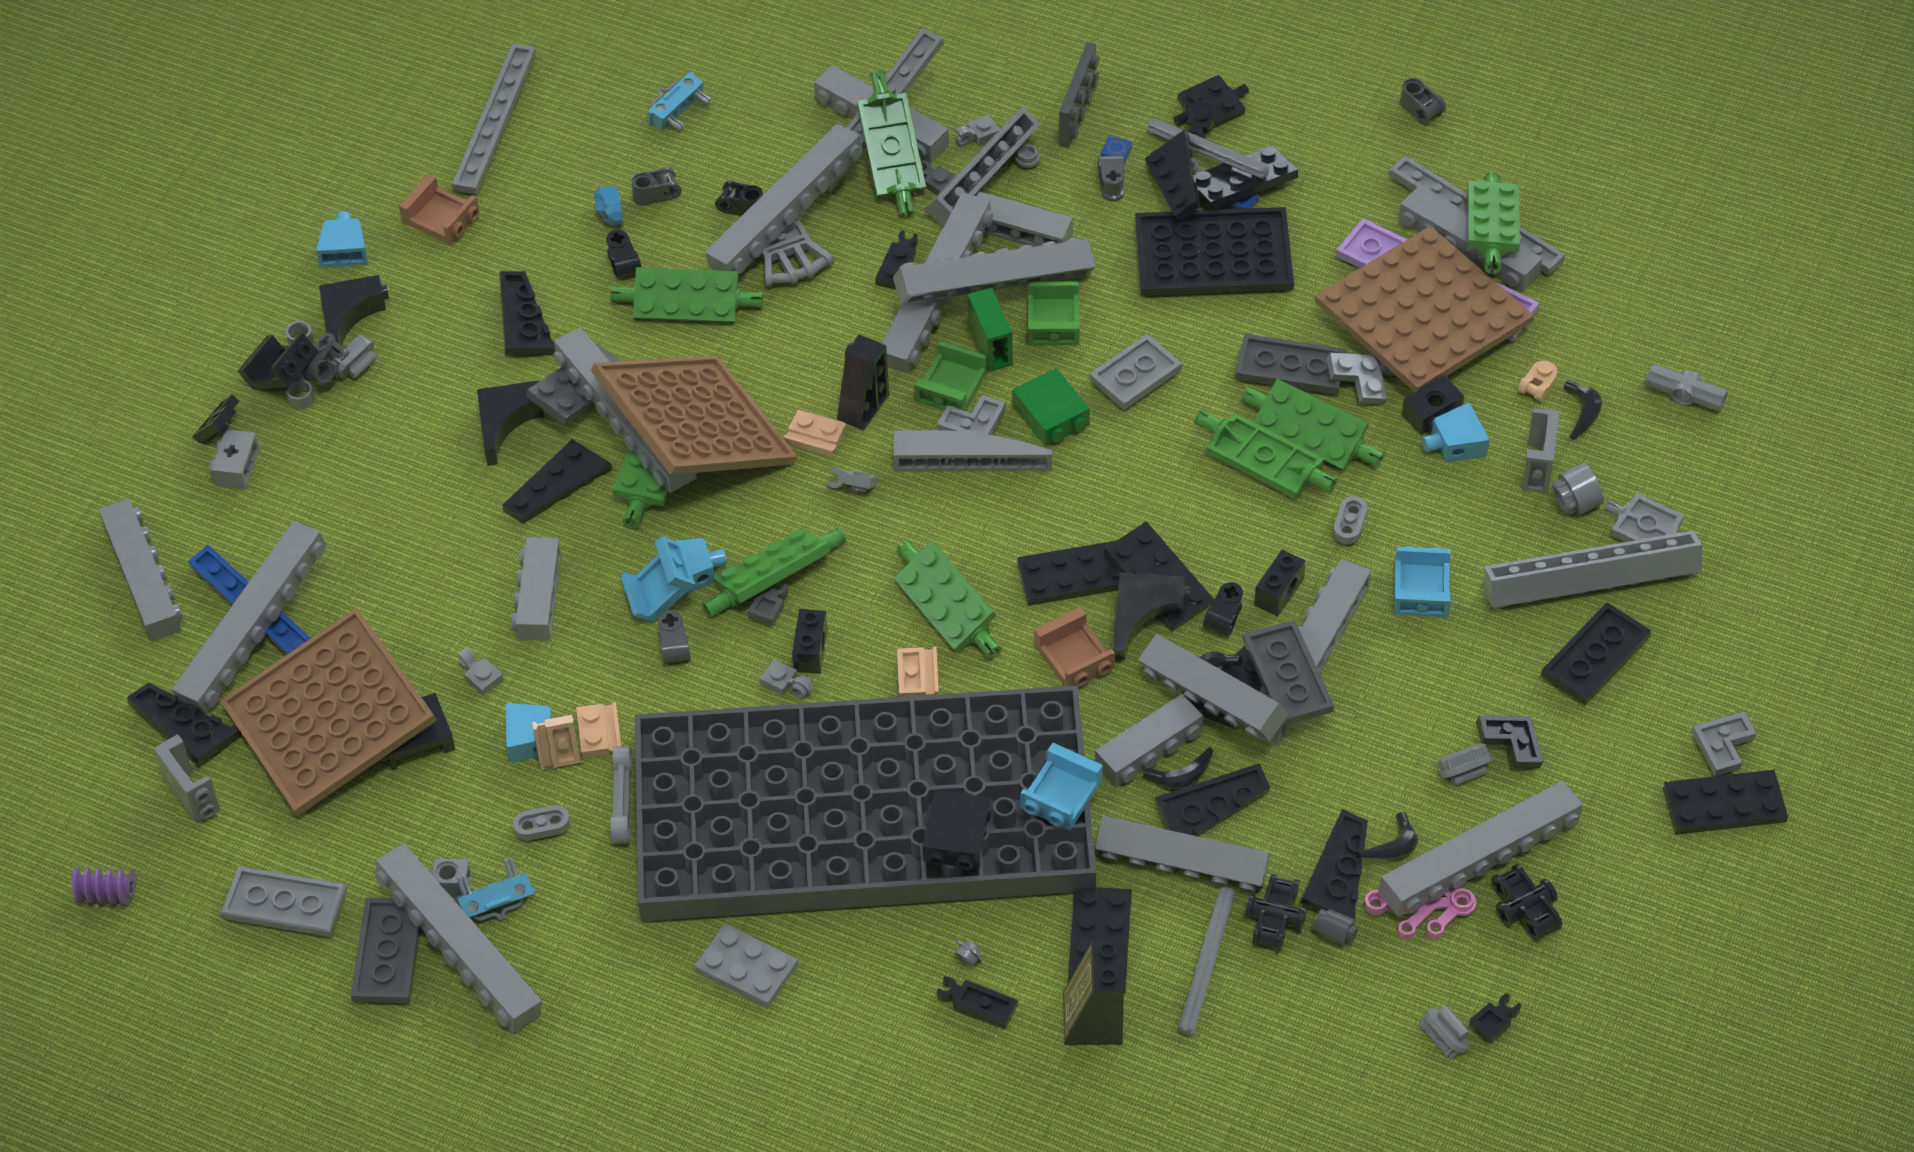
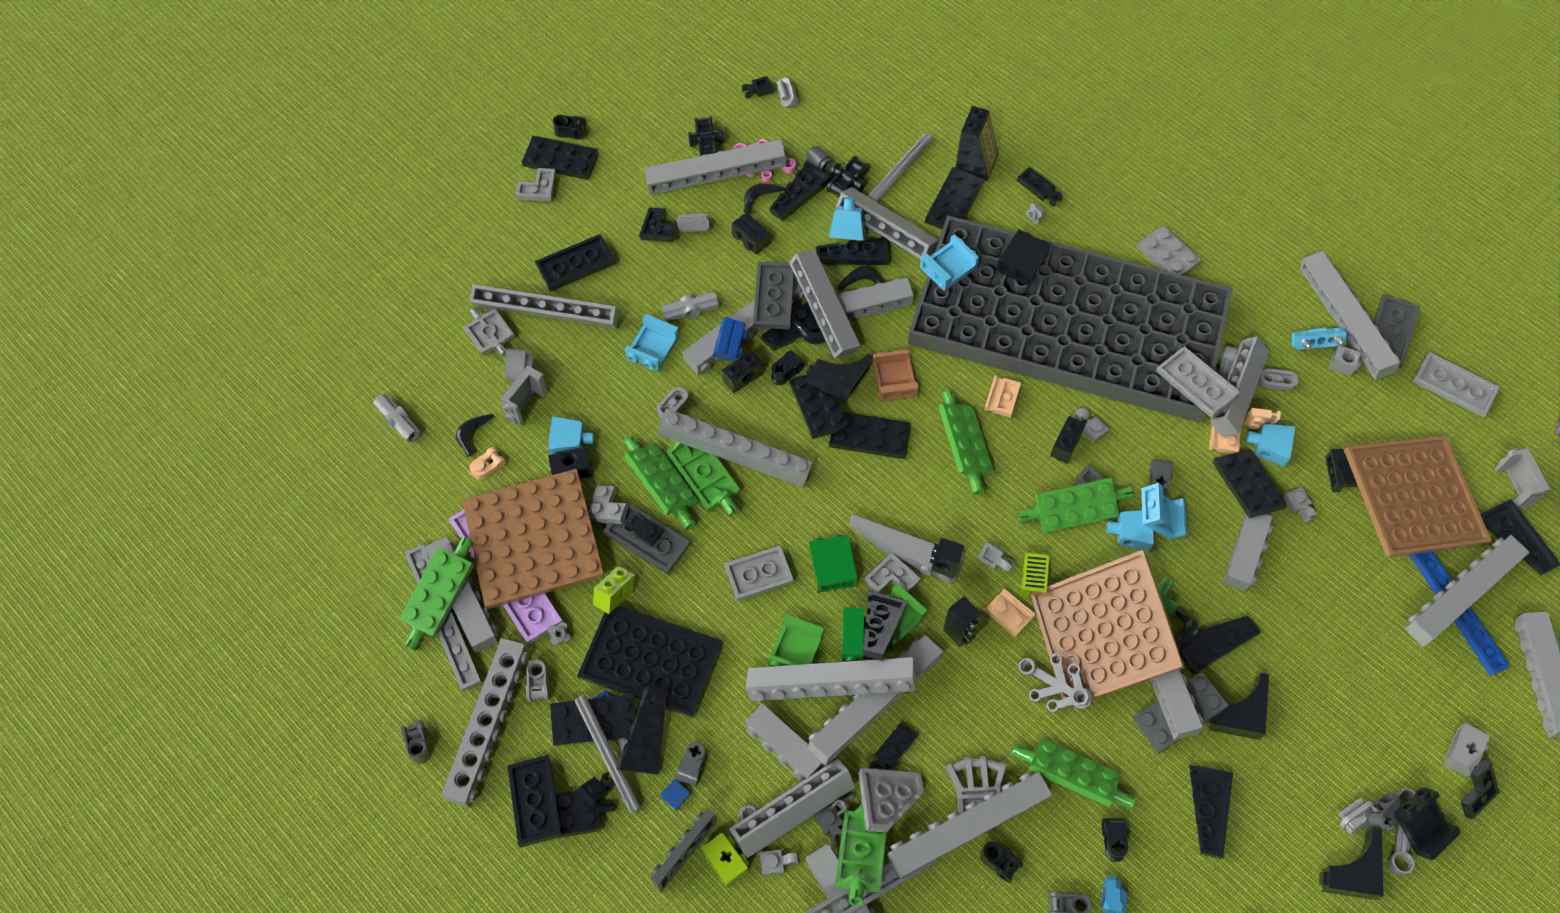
camera: 160 degrees left, 10 degrees up
(554, 660) = (1249, 483): none -> black plate
(591, 466) = (1189, 629): none -> black piece
(594, 773) = (1244, 377): none -> light grey brick
(655, 733) = (1198, 382): none -> light grey plate
(733, 364) = (1058, 685): none -> light grey plant
(799, 468) = (1034, 574): none -> lime panel
(883, 202) = (887, 796): none -> light grey plate
(911, 419) = (946, 557): none -> black brick
(933, 190) = (842, 804): none -> light grey hand
(961, 341) = (881, 623): none -> black wing
(1040, 106) = (728, 872): none -> lime brick
(1235, 473) = (734, 447): none -> light grey brick
(1237, 824) = (848, 221): none -> medium azure torso
(1260, 90) = (534, 801): none -> black plate
(1292, 360) = (646, 532): none -> black plate
(1293, 287) = (613, 589): none -> lime brick
(1314, 592) = (729, 340): none -> blue brick
(1326, 191) = (537, 685): none -> light grey piece
(1332, 240) = (553, 633): none -> light grey plate
(1358, 140) = (464, 795): none -> light grey brick
(1373, 775) = (751, 233): none -> black brick
(1400, 646) = (690, 306): none -> light grey piece
(1736, 845) = (568, 126): none -> black piece

